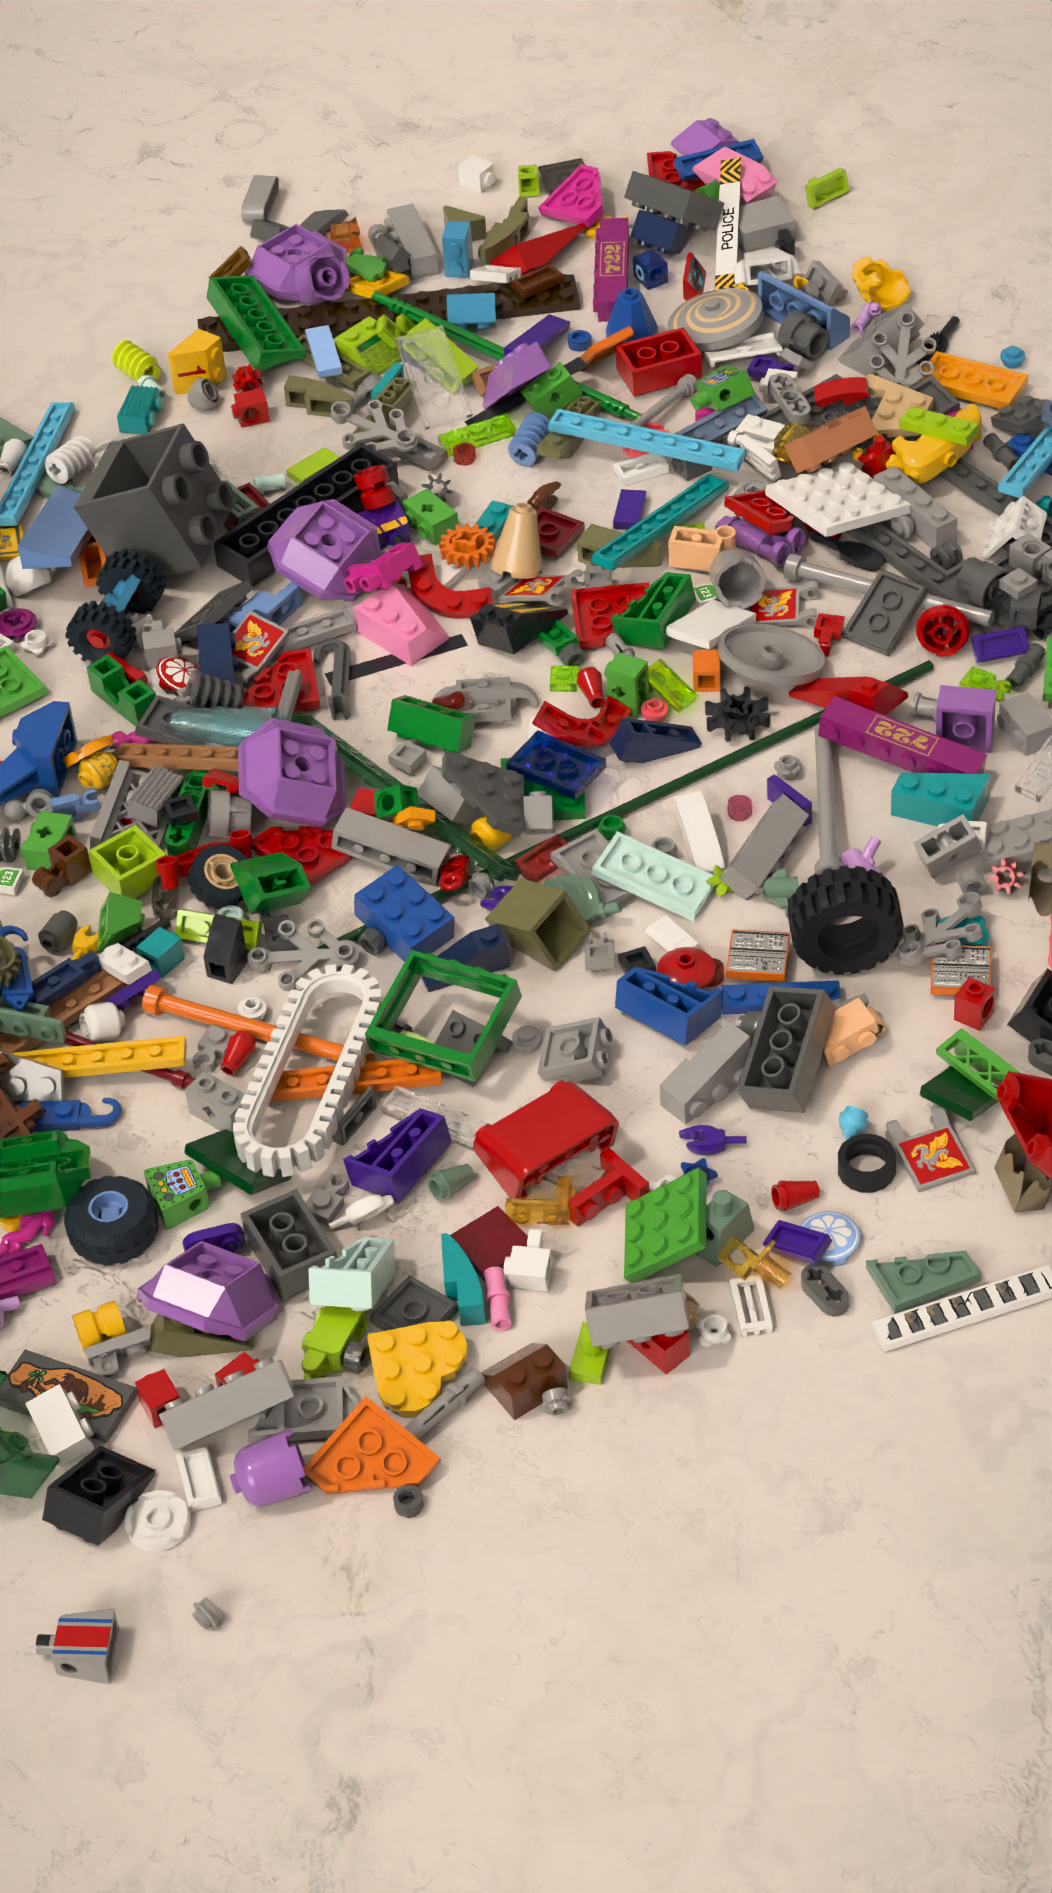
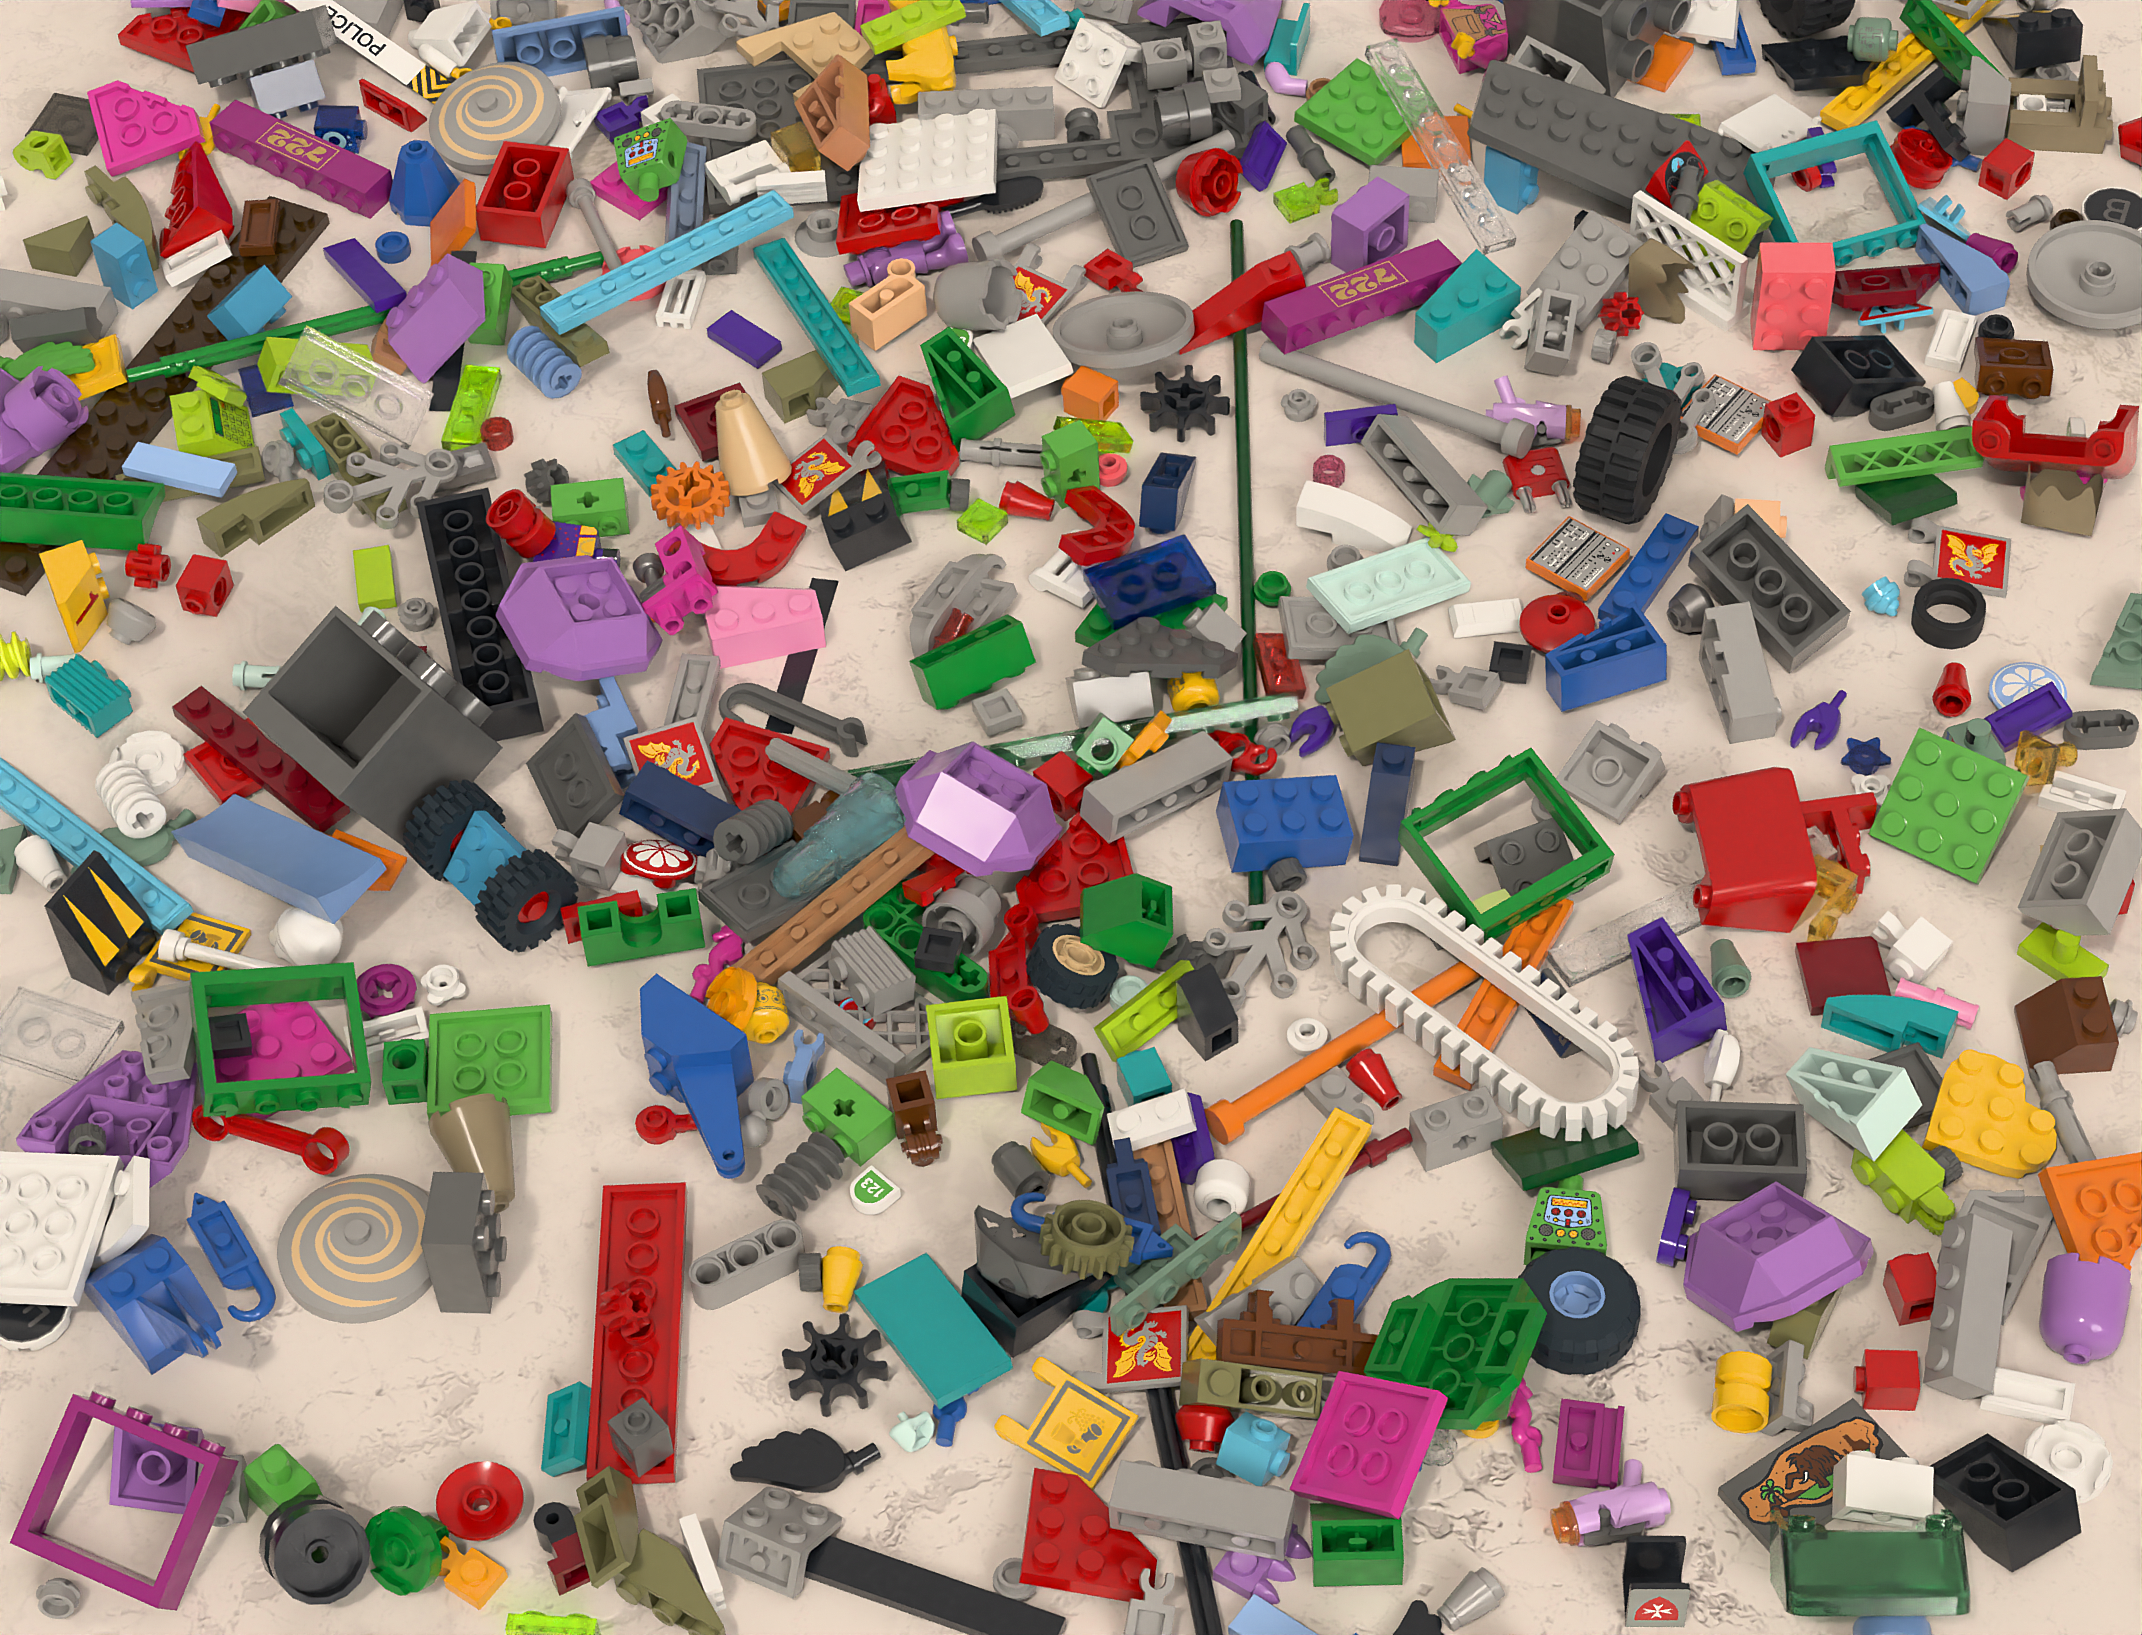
camera: 60 degrees left, 5 degrees up
(848, 389) = (741, 76): red slope -> none

